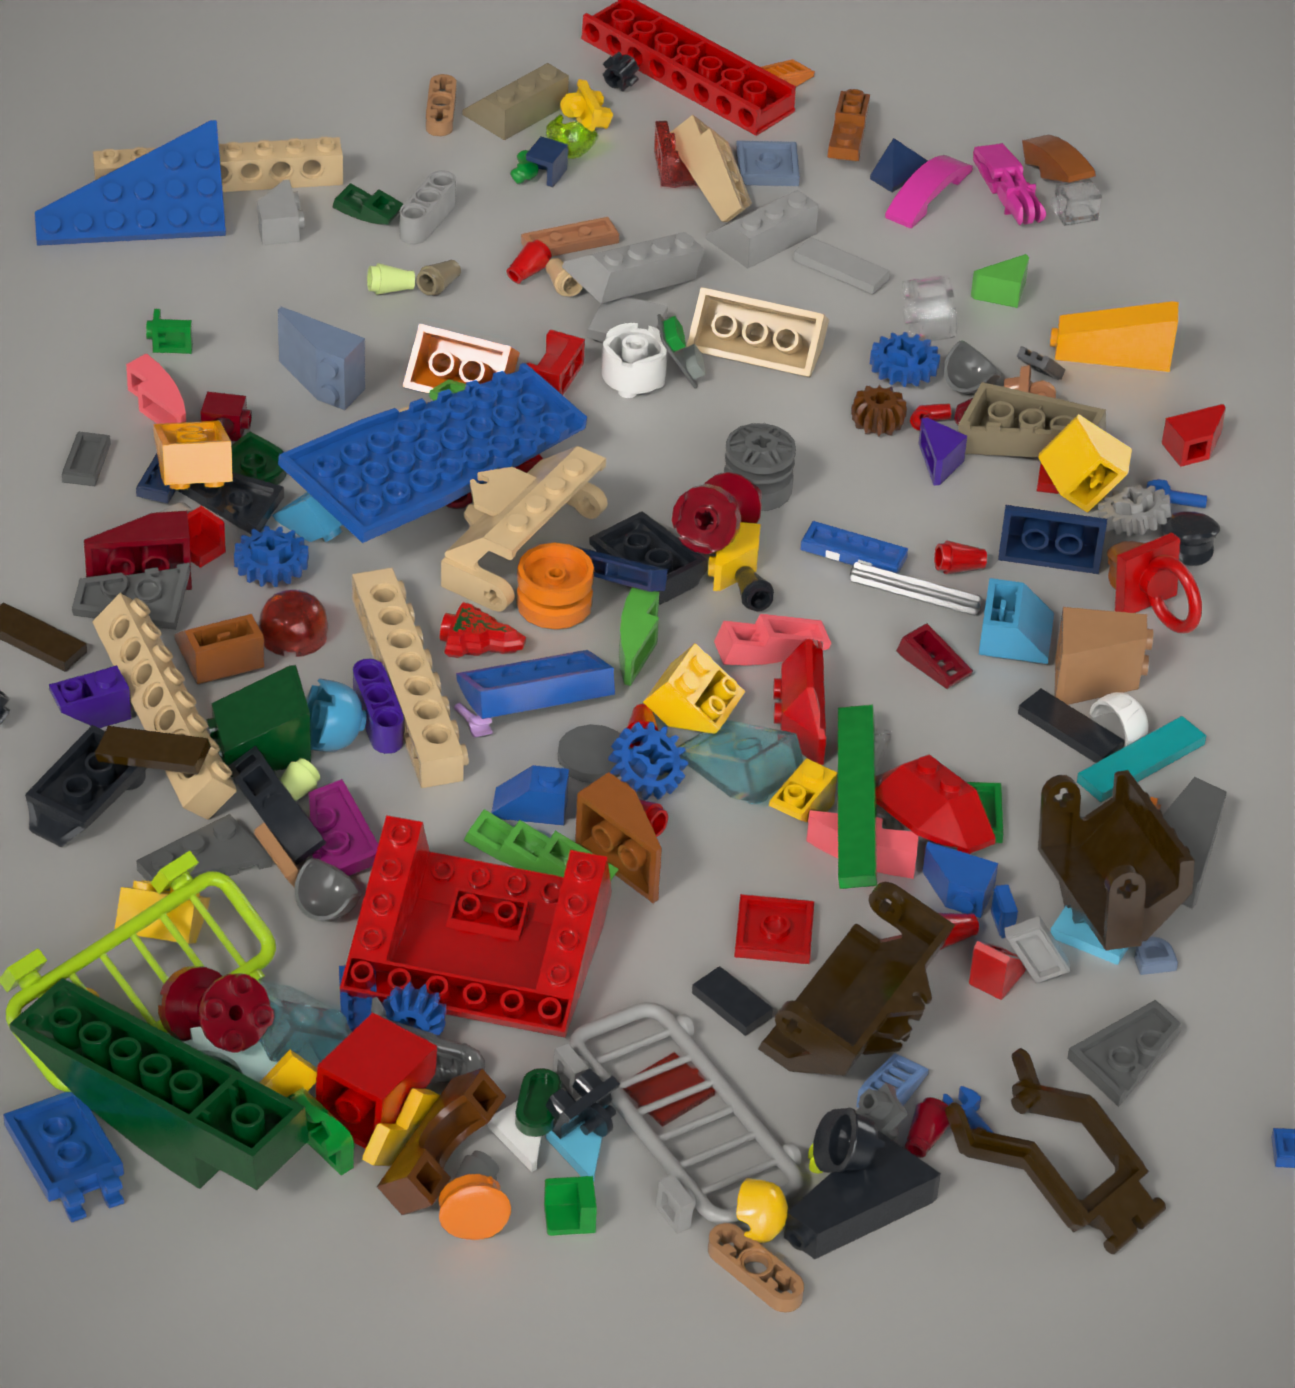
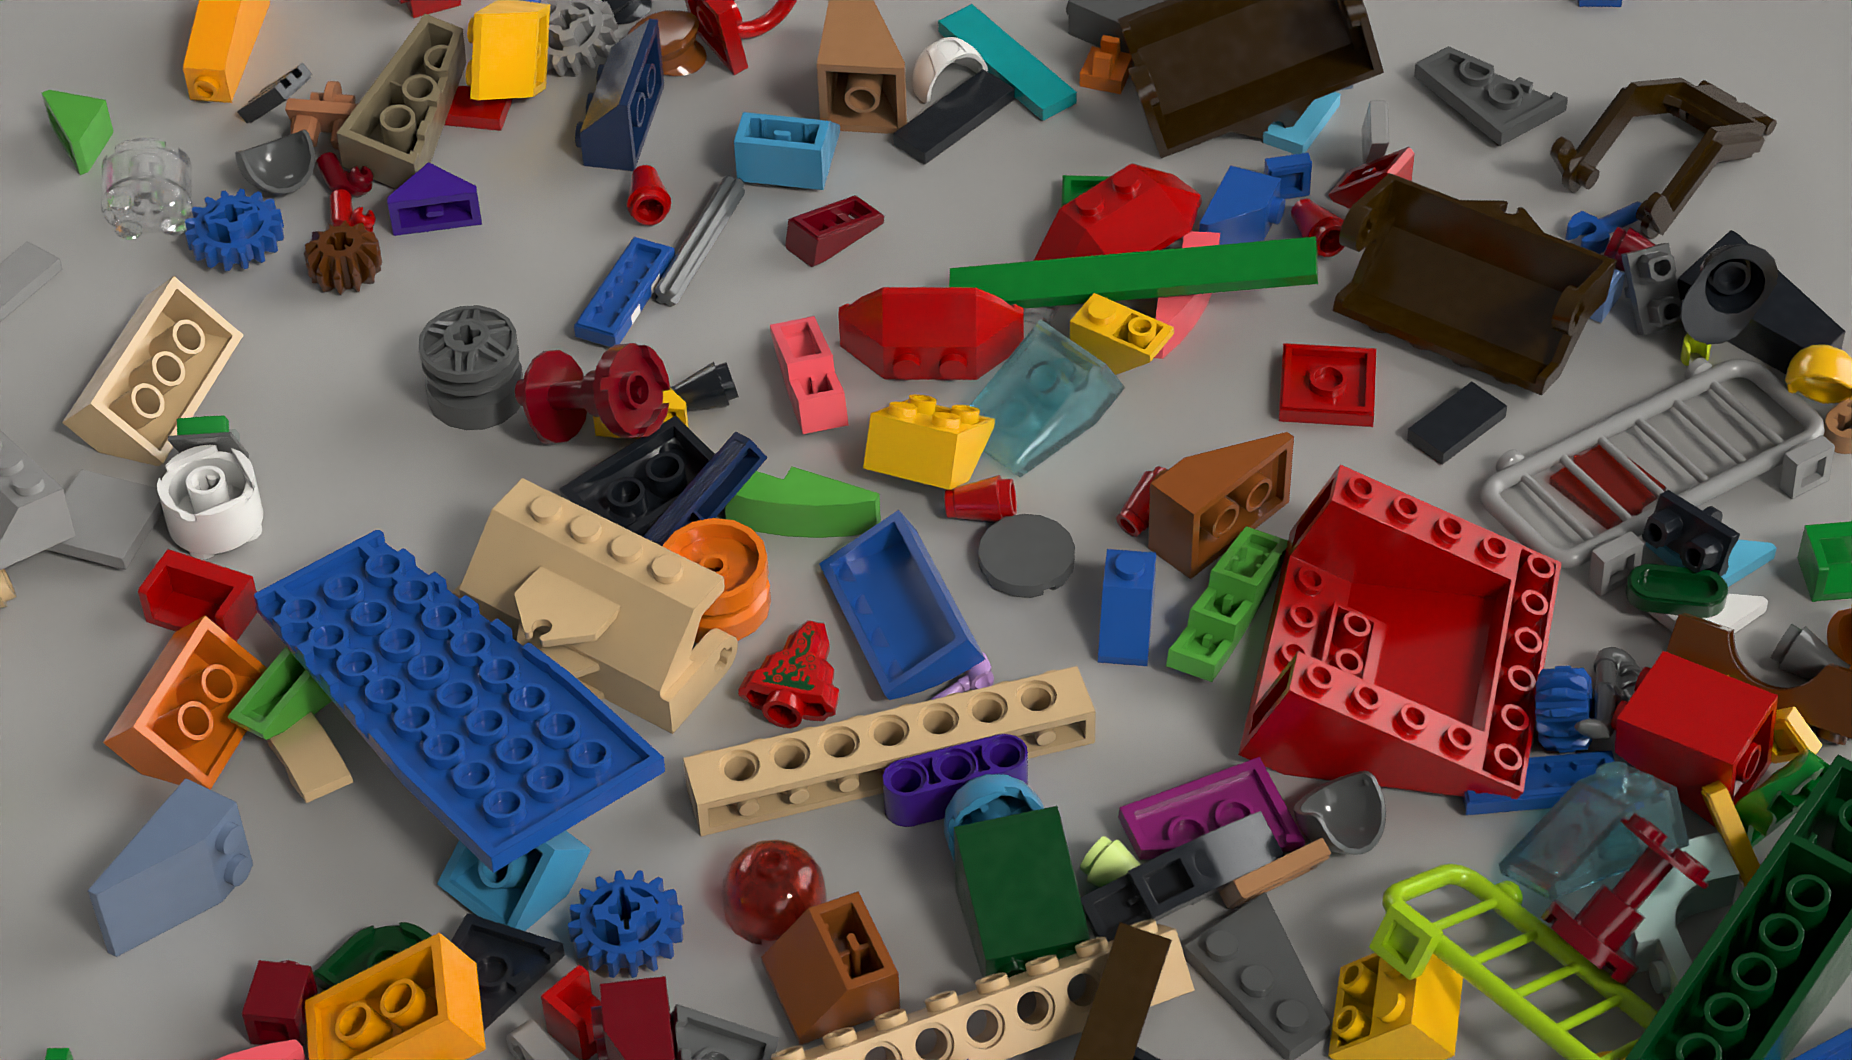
camera: 85 degrees left, 5 degrees up
(644, 763) = (1061, 485): blue gear -> none

